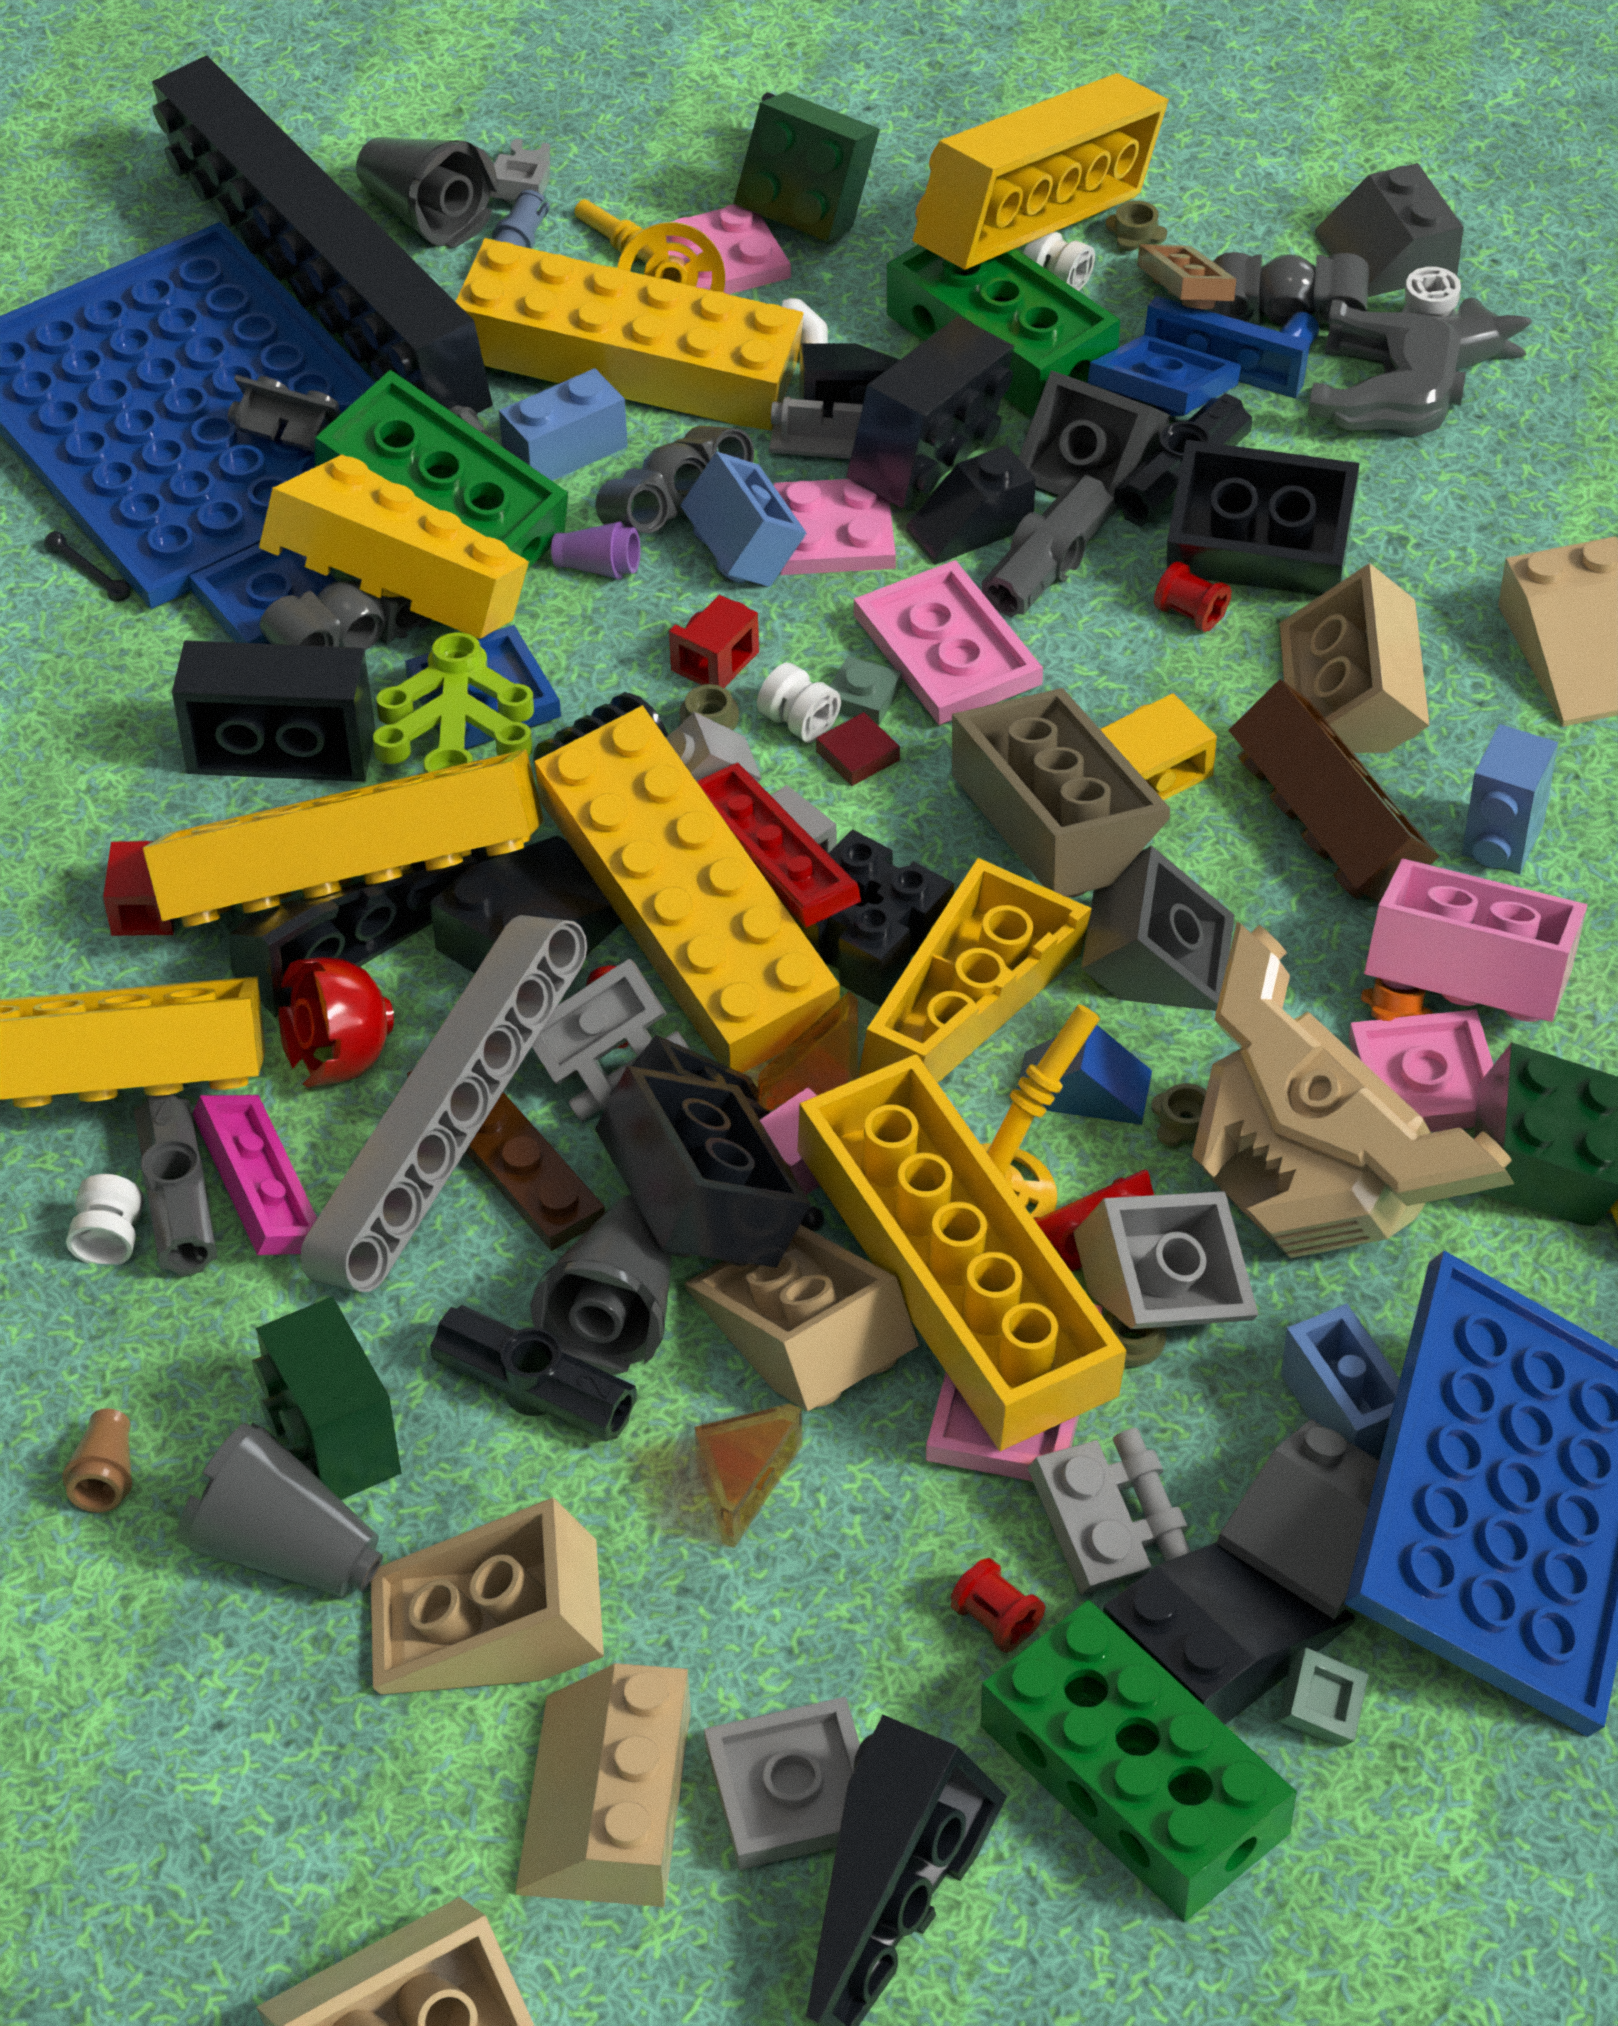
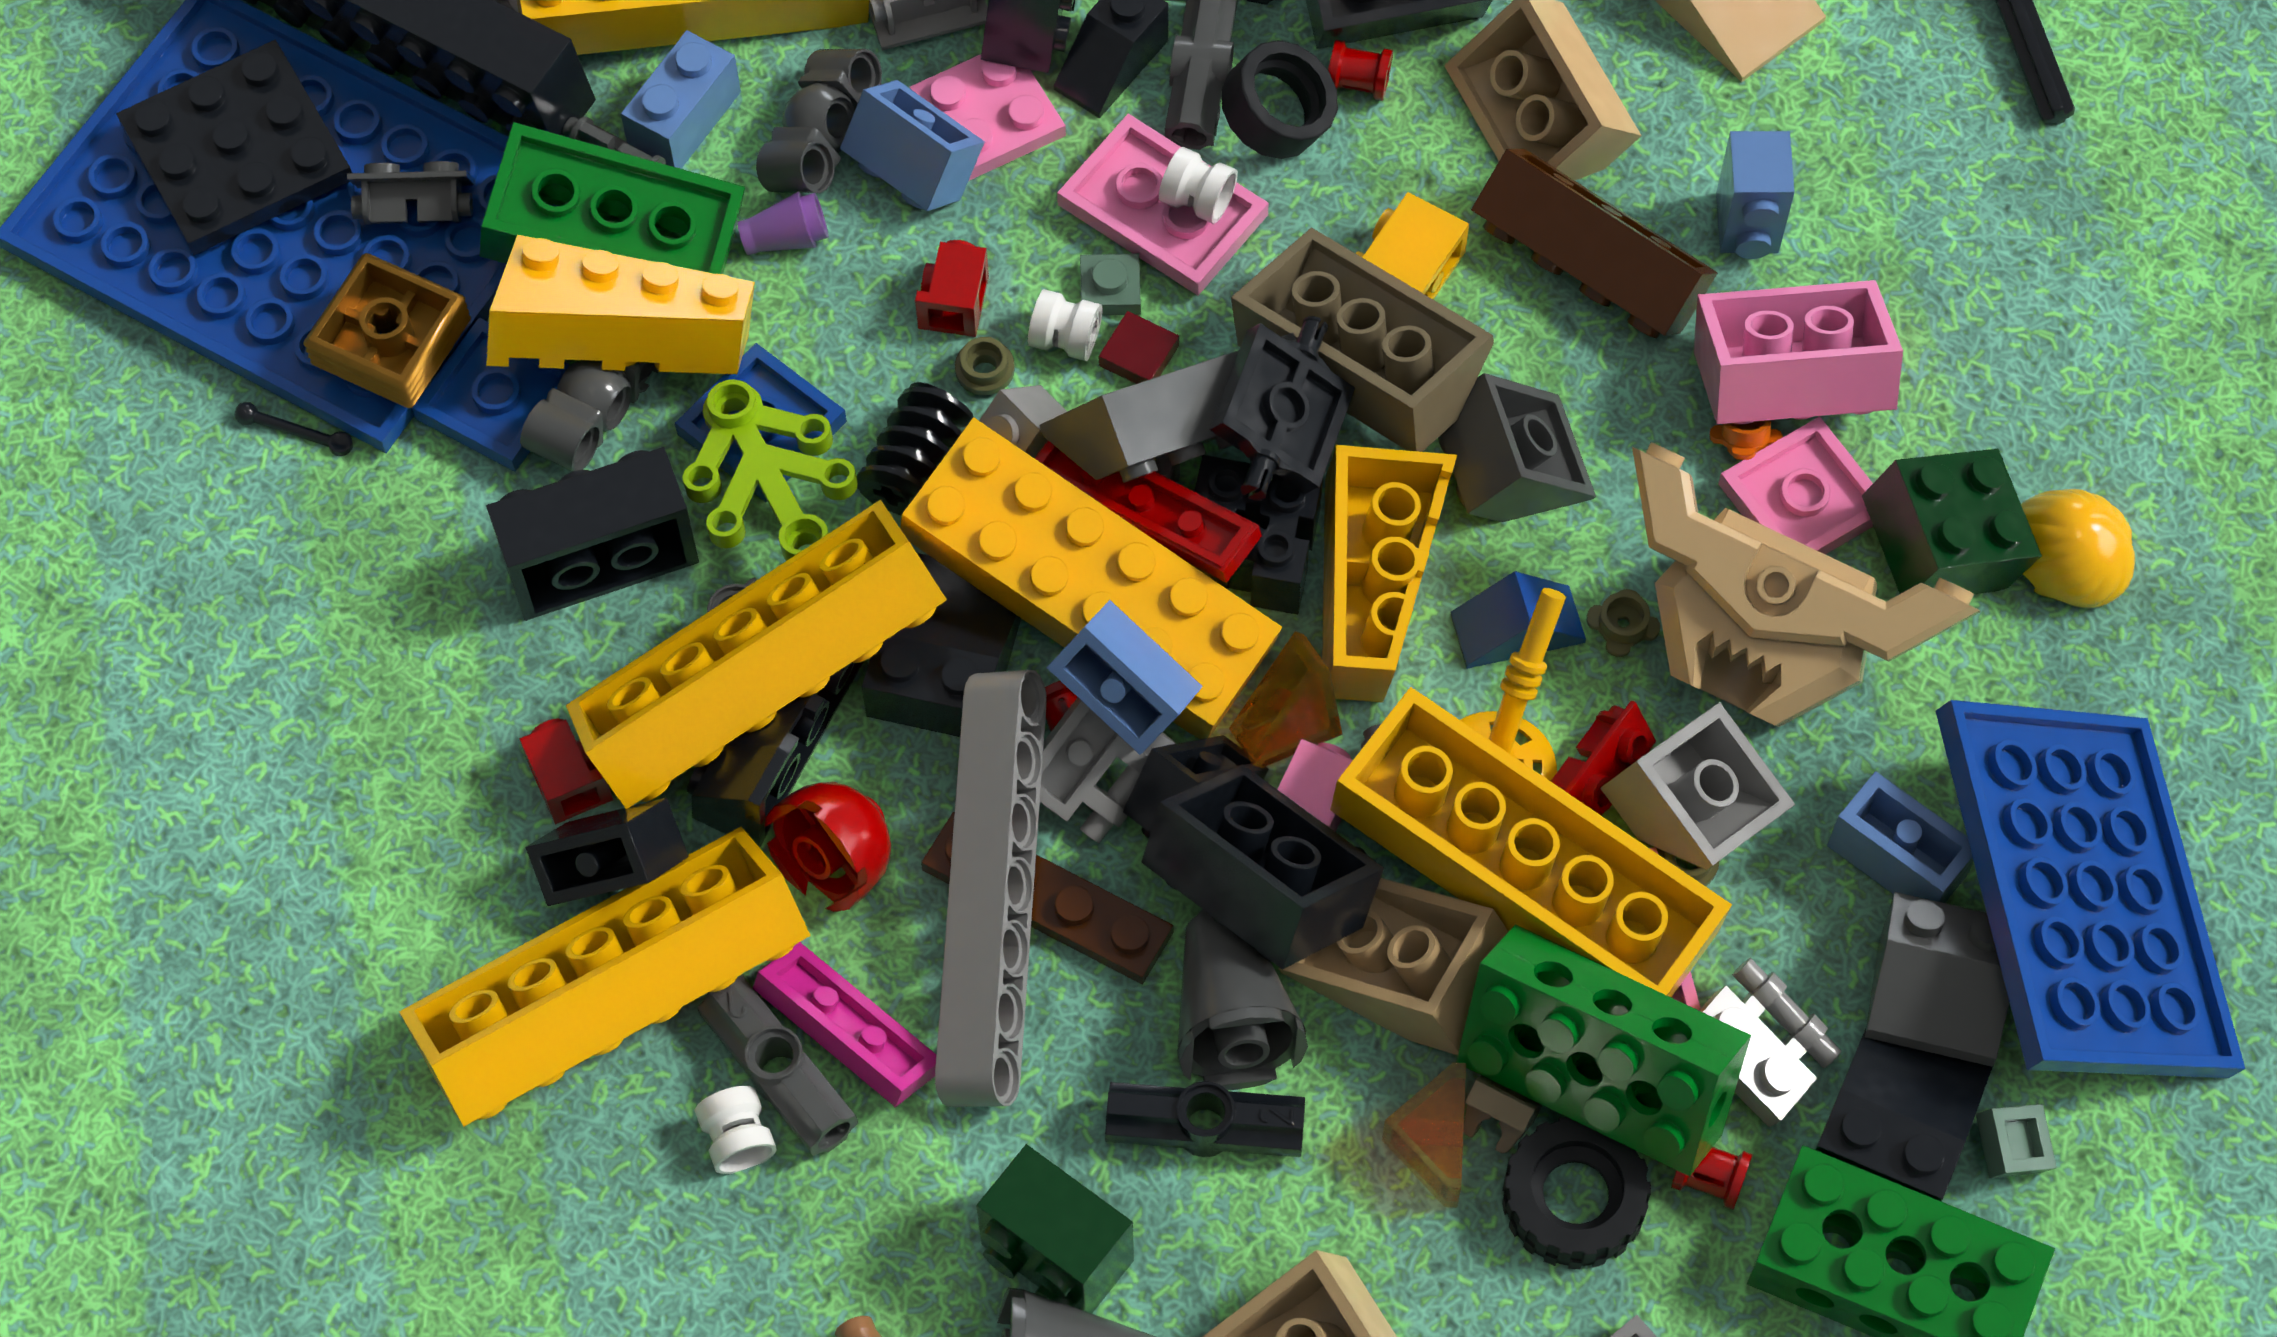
camera: 25 degrees left, 15 degrees up
(126, 949) = (607, 852): none -> black brick
(165, 340) = (234, 147): none -> black plate
(197, 503) = (376, 300): none -> pearl gold brick
(655, 956) = (1125, 677): none -> medium blue brick
(830, 1472) = (1493, 1100): none -> dark tan tile
(854, 777) = (1145, 422): none -> dark grey slope
(859, 1522) = (1565, 1241): none -> black tyre
(933, 1436) = (1602, 1049): none -> green brick
(936, 800) = (1282, 408): none -> black plate
(984, 629) = (1198, 185): none -> white wheel
(1117, 560) = (1304, 76): none -> black tyre

